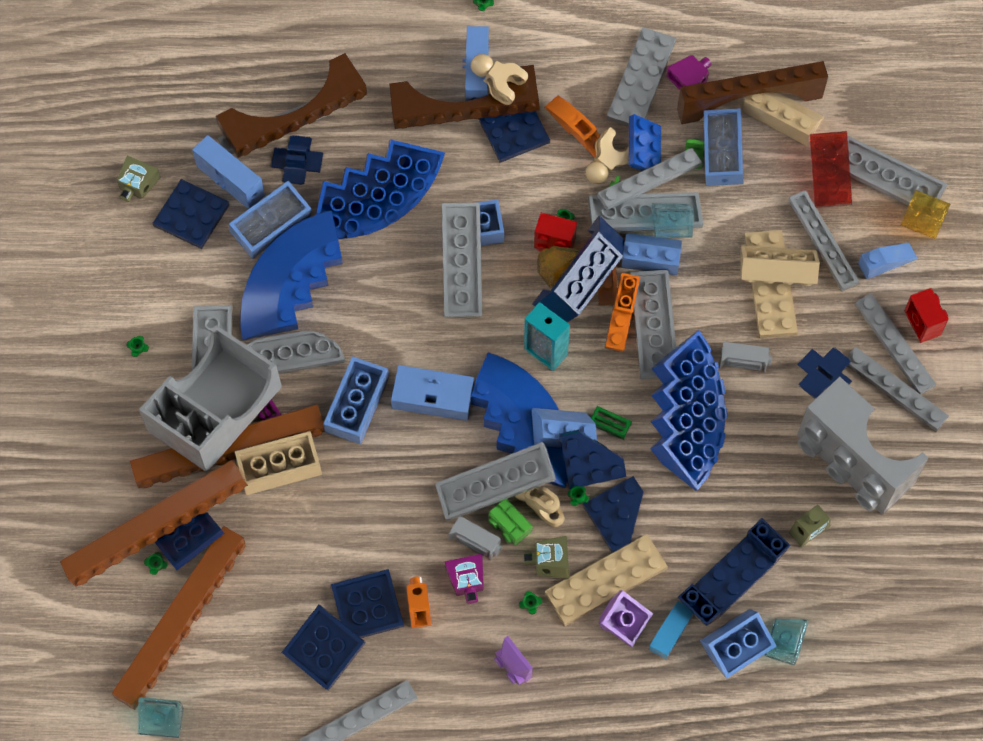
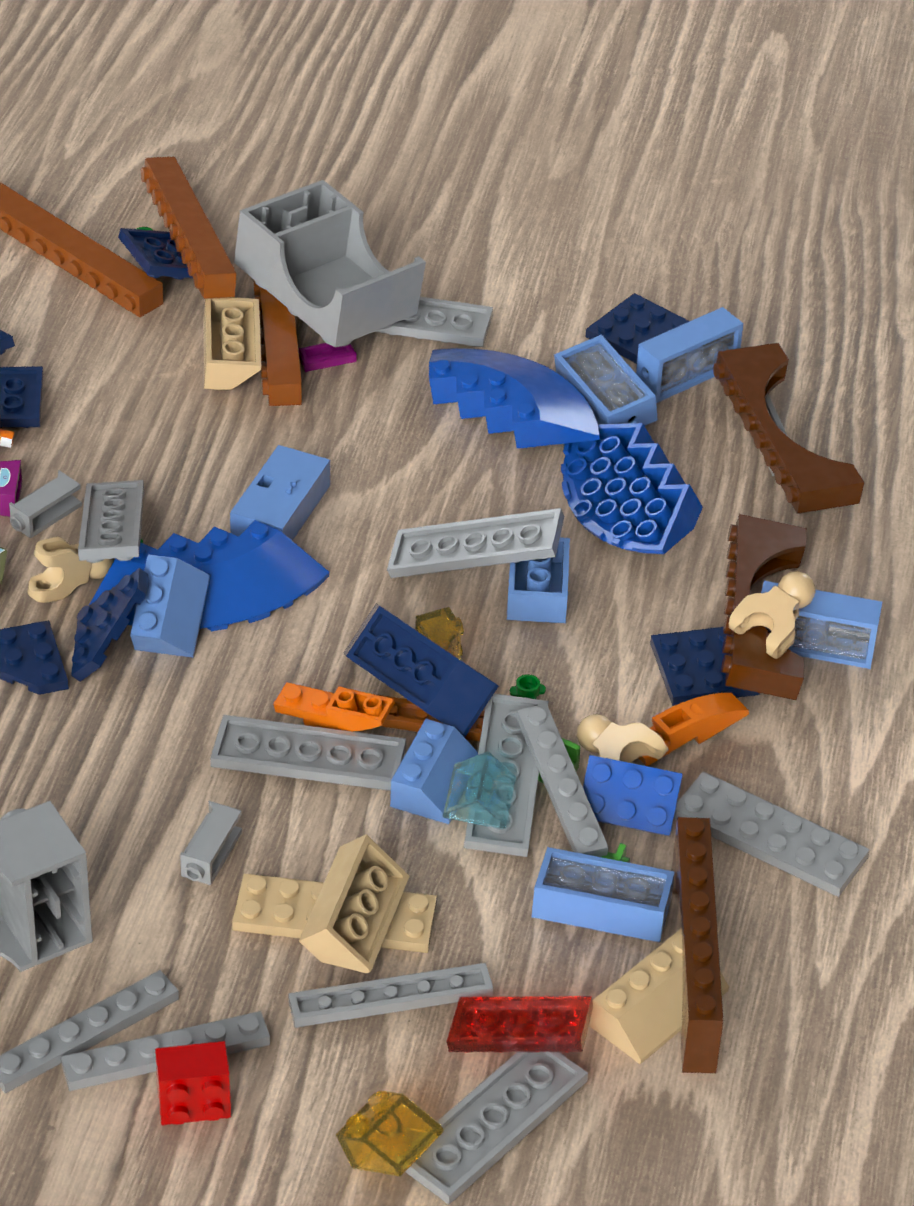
camera: 100 degrees right, 25 degrees down
(136, 178) = (706, 285): olive torso -> none
(139, 340) = (453, 260): green plate -> none
(294, 161) = (718, 441): dark blue piece -> none
(298, 351) = (393, 381): light grey plate -> none
(356, 400) = (294, 419): medium blue brick -> none
(509, 522) = (63, 527): bright green brick -> none
(546, 336) = (309, 590): teal brick -> none
(554, 232) = (495, 649): red brick -> none
(577, 491) = (63, 617): green plate -> none
(621, 435) = (169, 680): green tile -> none
(689, 71) = (758, 887): magenta torso -> none
(692, 411) = (139, 757): blue brick -> none
(828, 371) = (134, 928): dark blue piece -> none
(885, 259) = (327, 1071): medium blue slope -> none

